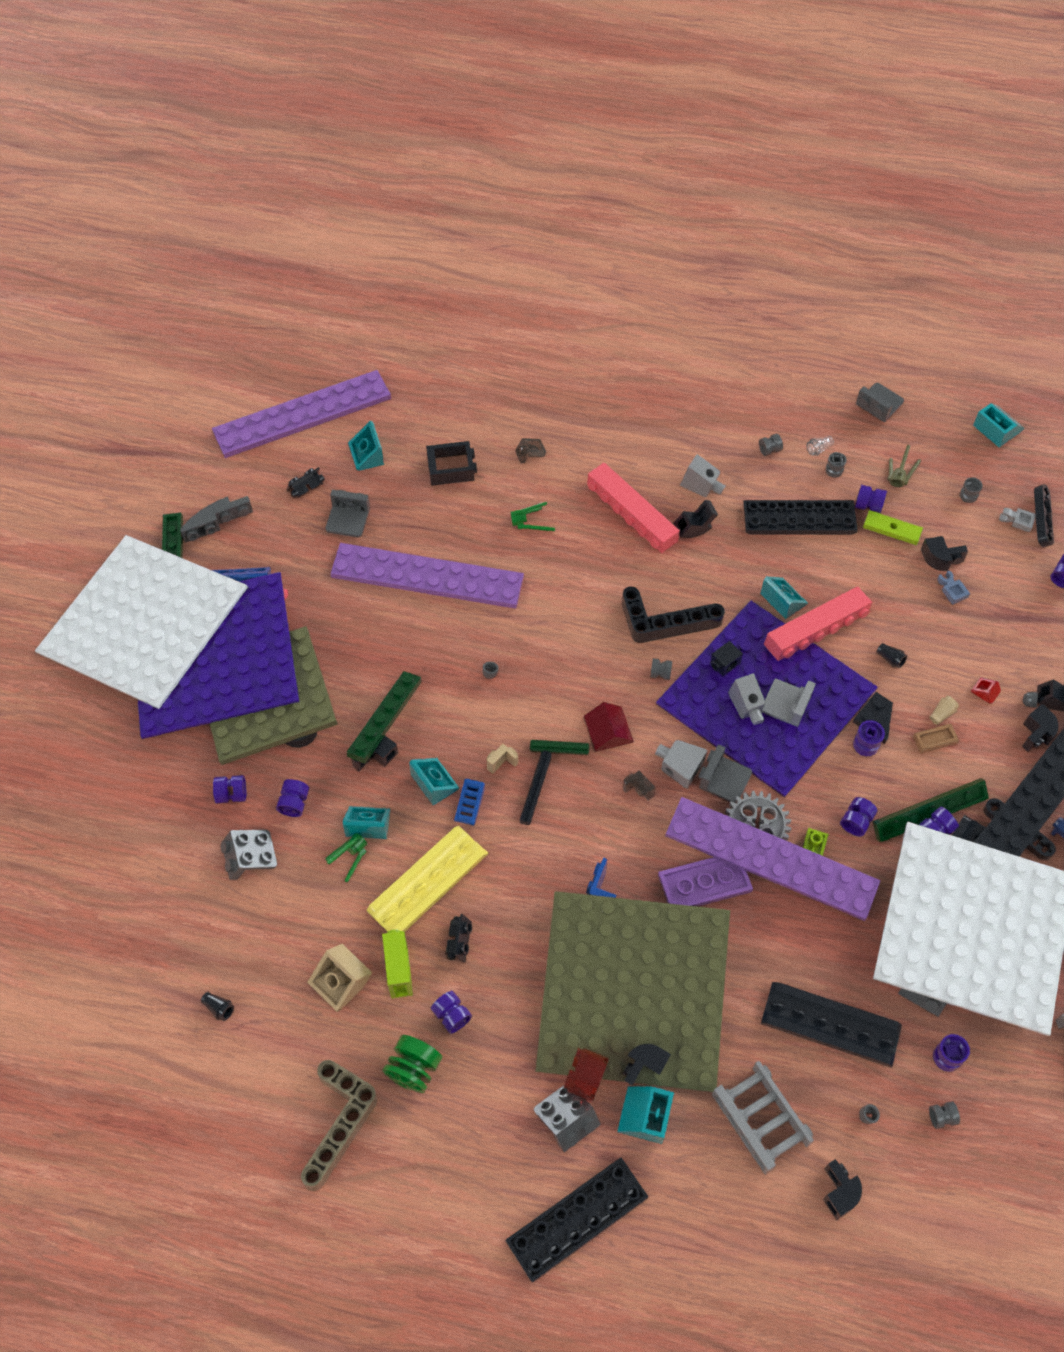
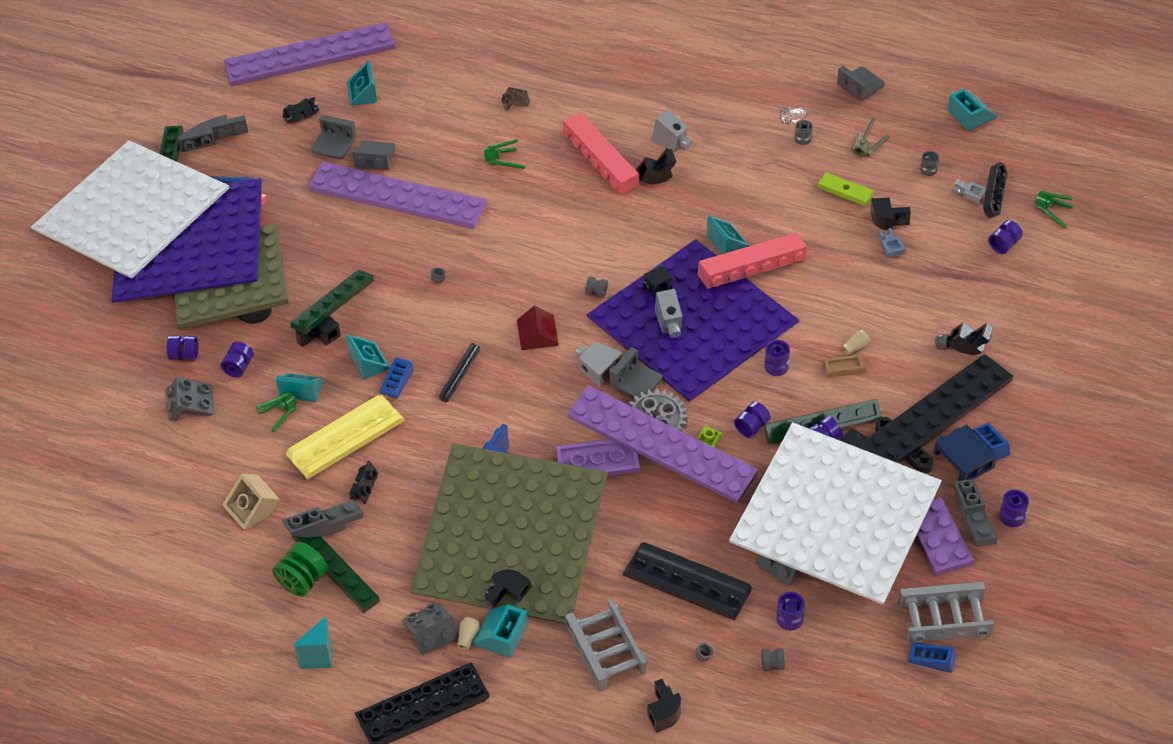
camera: 10 degrees right, 10 degrees down
(218, 1006) = (142, 515): black cone -> none
(341, 1124) = (231, 611): dark tan beam -> none
(394, 529) = (373, 155): none -> dark grey bracket
(397, 964) = (302, 488): lime window -> none
(420, 998) = (322, 523): none -> dark grey slope
(449, 1009) = (343, 536): dark purple wheel -> none
(449, 1164) = (315, 647): none -> teal slope
(453, 475) = (438, 114): black window -> none
(453, 1054) = (343, 574): none -> dark green plate
(498, 757) = (431, 344): tan bracket -> none
(559, 747) = (489, 342): dark green axle -> none
(587, 1074) = (451, 589): clear red brick -> none
(609, 1119) = (467, 632): none -> tan cone
(641, 784) = (555, 376): clear smoke bracket -> none
(667, 620) = (616, 250): black beam -> none
(771, 444) = (745, 111): dark grey wheel -> none
(788, 701) = (707, 321): light grey bracket -> none
(800, 517) = (759, 174): black plate -> none
(871, 499) = (827, 162): dark purple wheel -> none
(878, 710) = (796, 338): black wing -> none
(892, 655) = (819, 294): black cone -> none
(986, 689) = (903, 330): red slope -> none
(1043, 727) = (945, 362): black brick -> none

